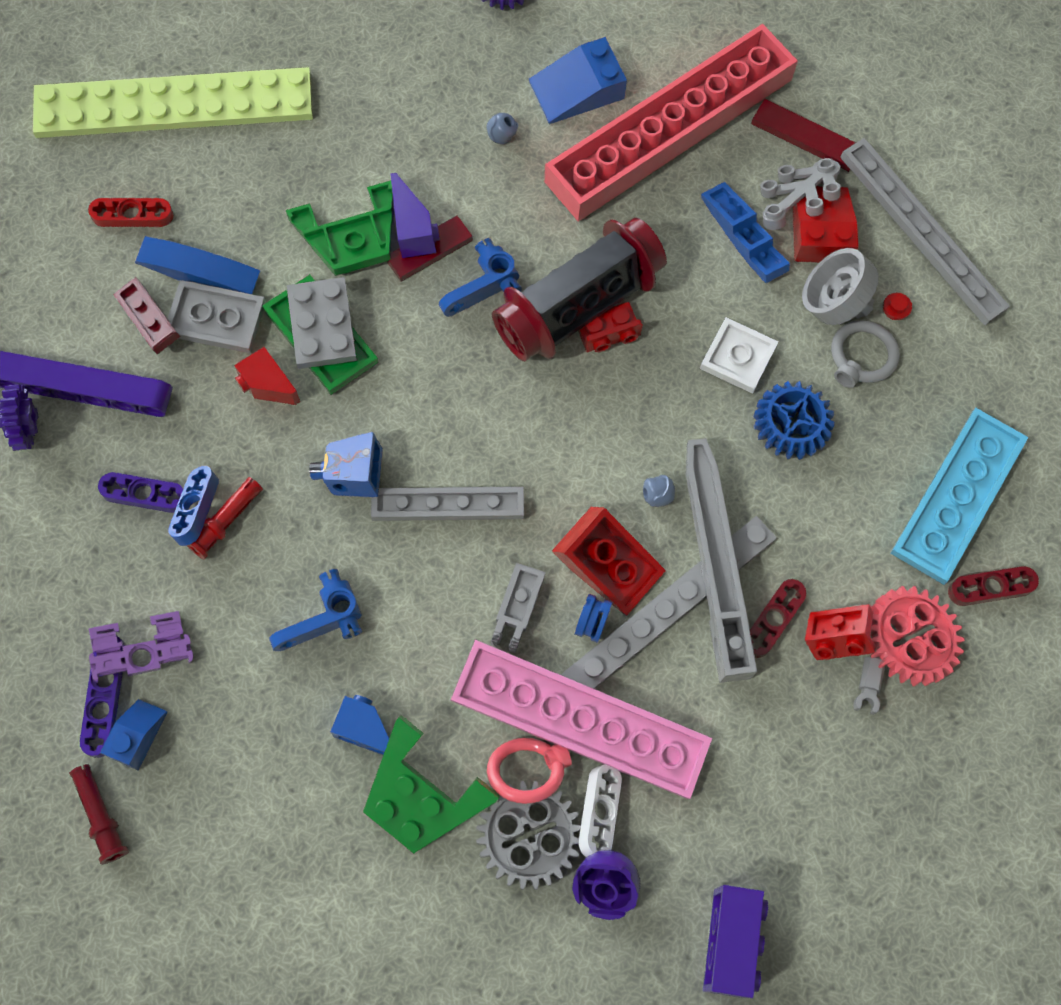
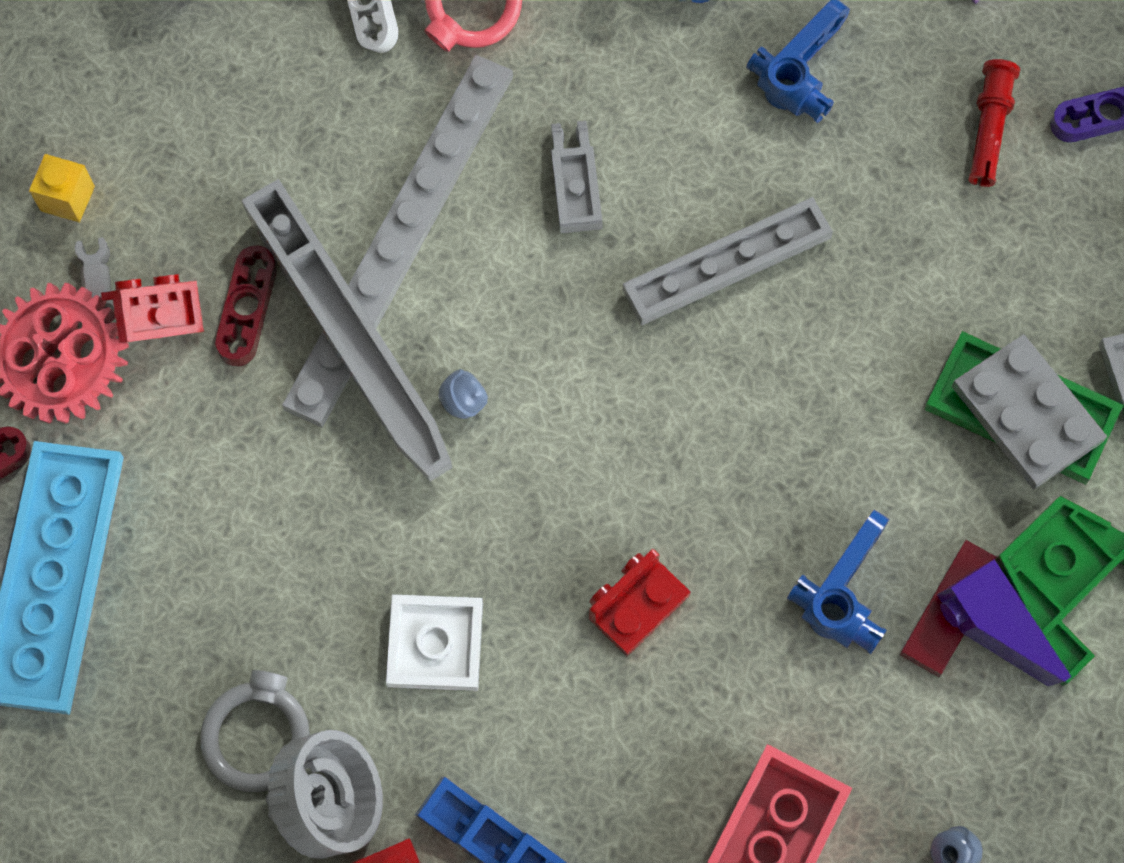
camera: 160 degrees right, 0 degrees up
(186, 523) = (1043, 96): blue beam -> none
(265, 379) = (1051, 310): red slope -> none
(351, 466) = (871, 239): torso -> none
(580, 289) = (742, 529): brick -> none
(581, 719) = (434, 71): bright pink plate -> none
(590, 616) = (473, 195): blue wheel -> none
(609, 559) = (491, 278): red slope -> none
(804, 398) = (301, 575): blue gear -> none
(875, 755) = (62, 188): none -> yellow brick
(897, 306) = (231, 832): red plate -> none

